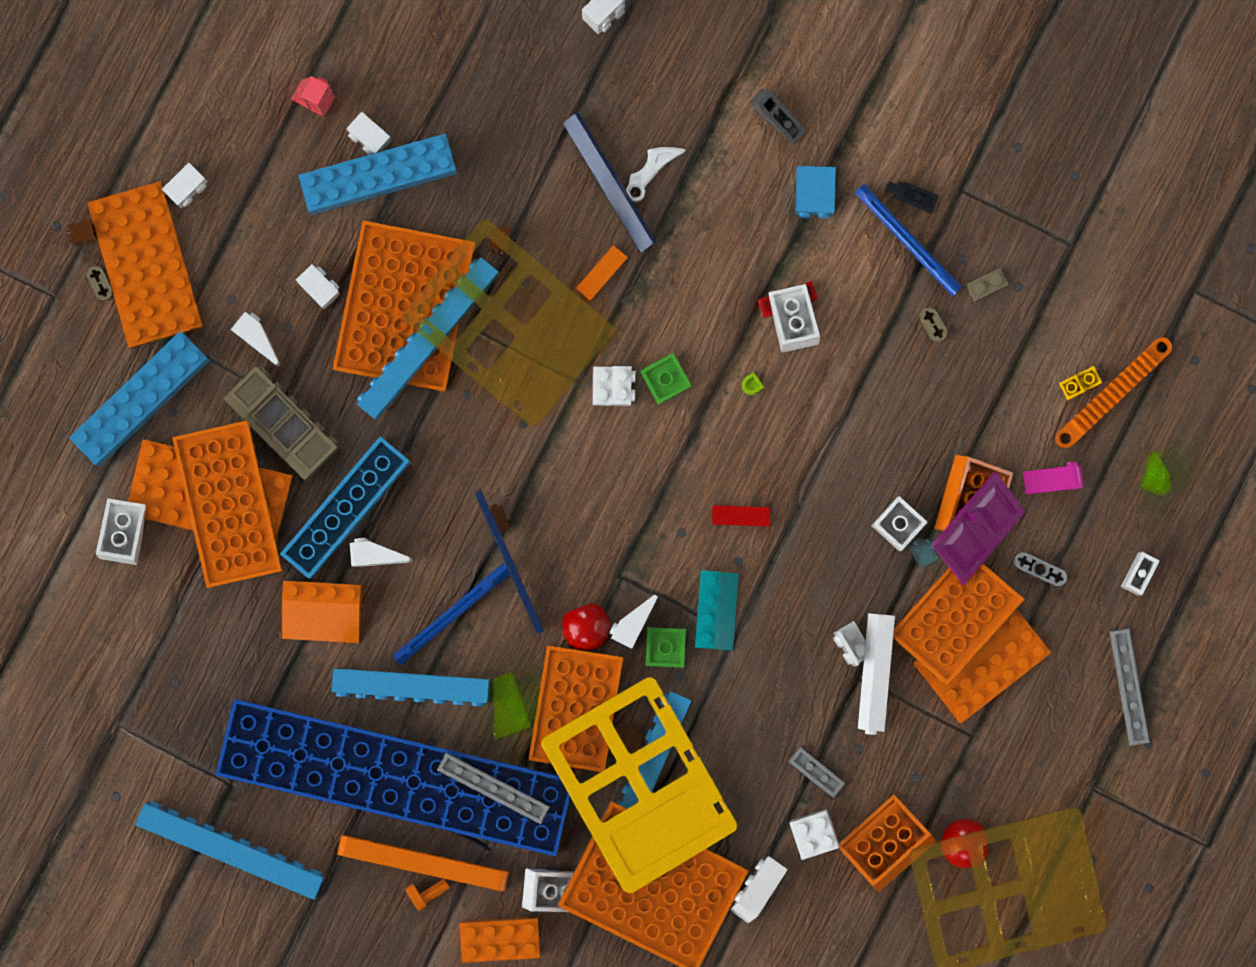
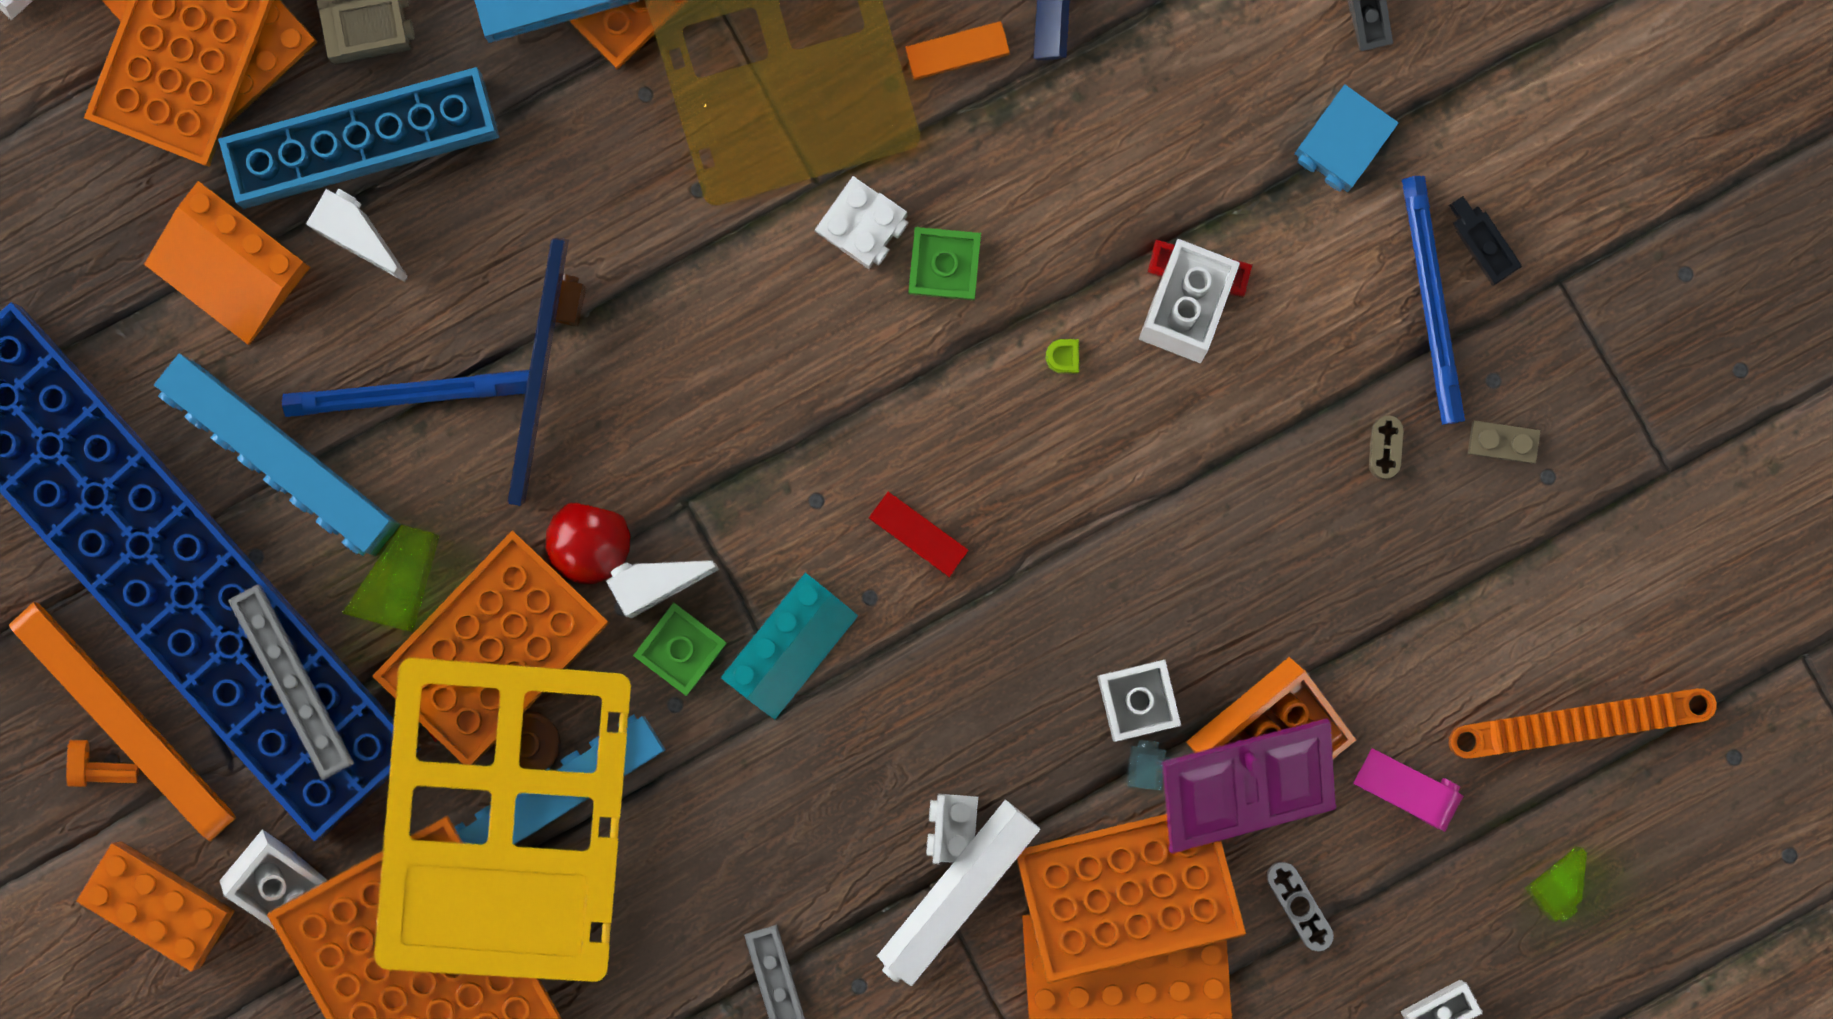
camera: 40 degrees right, 0 degrees up
(1080, 382) = (1543, 676): yellow slope -> none

